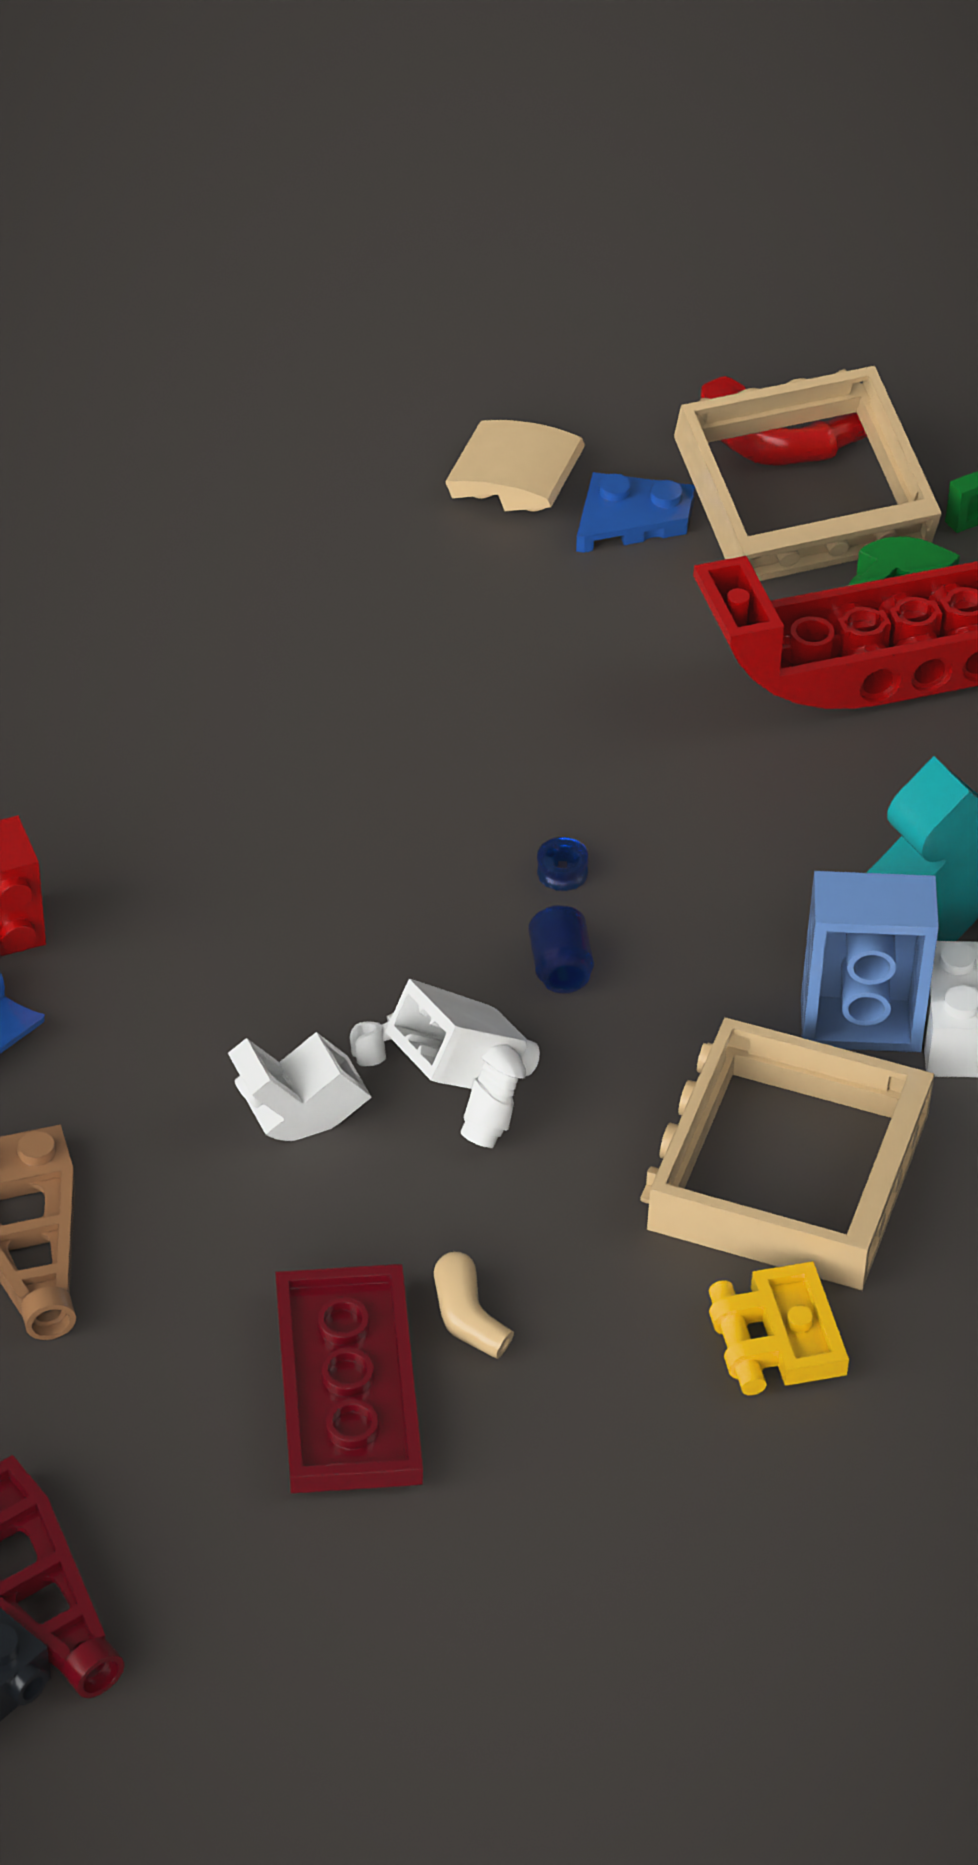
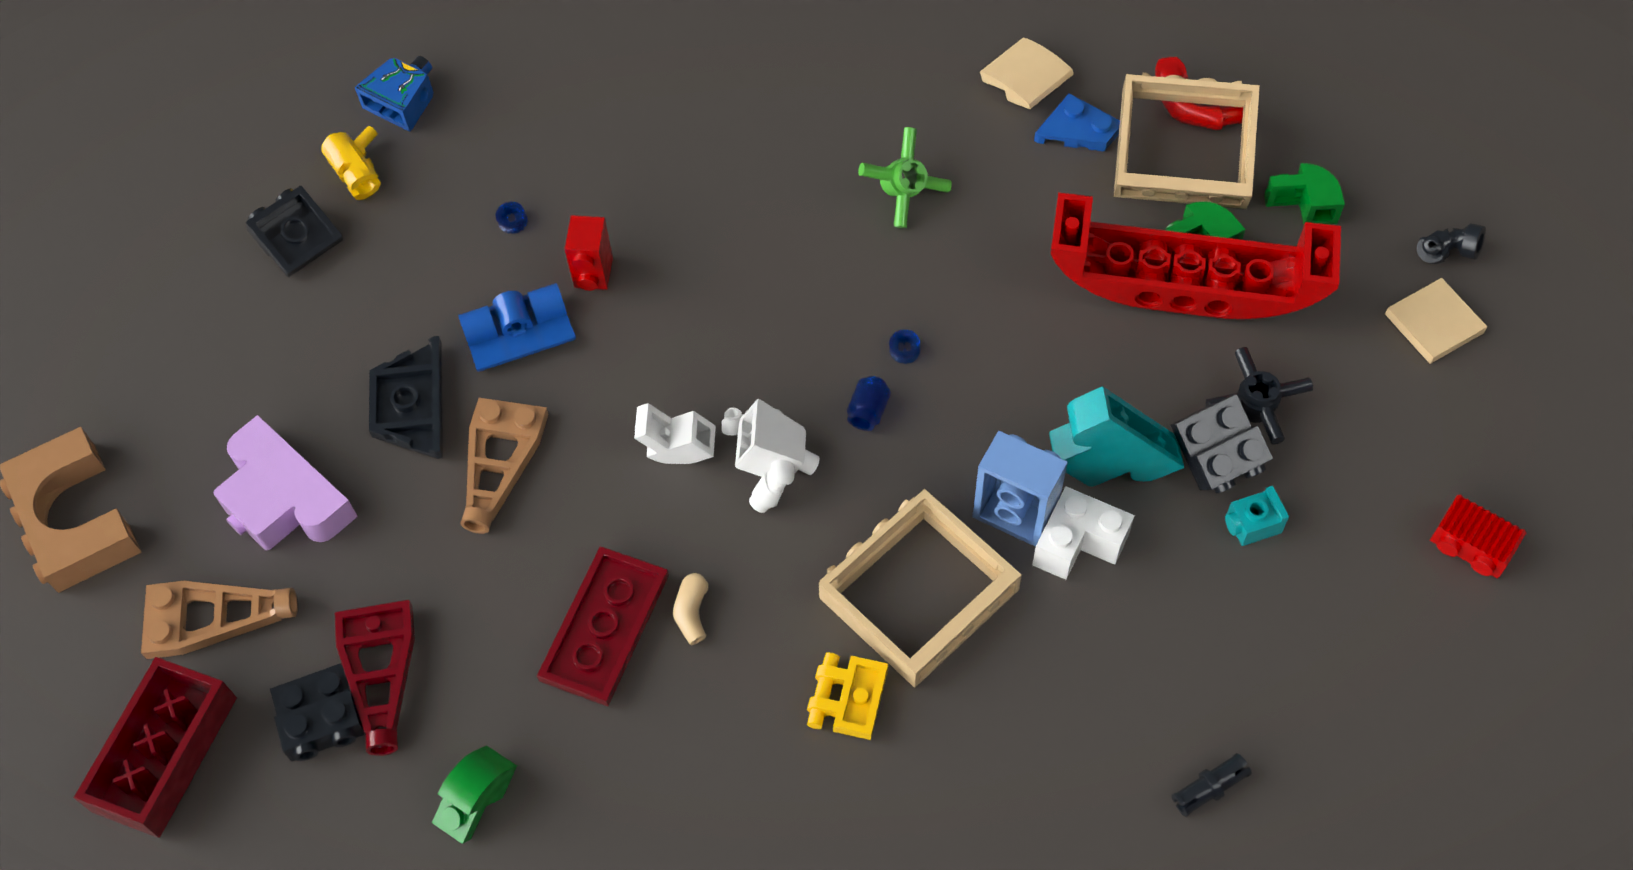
camera: 30 degrees right, 15 degrees up
(292, 1673) = (469, 788): none -> green brick
(428, 643) = (903, 188): none -> bright green bar

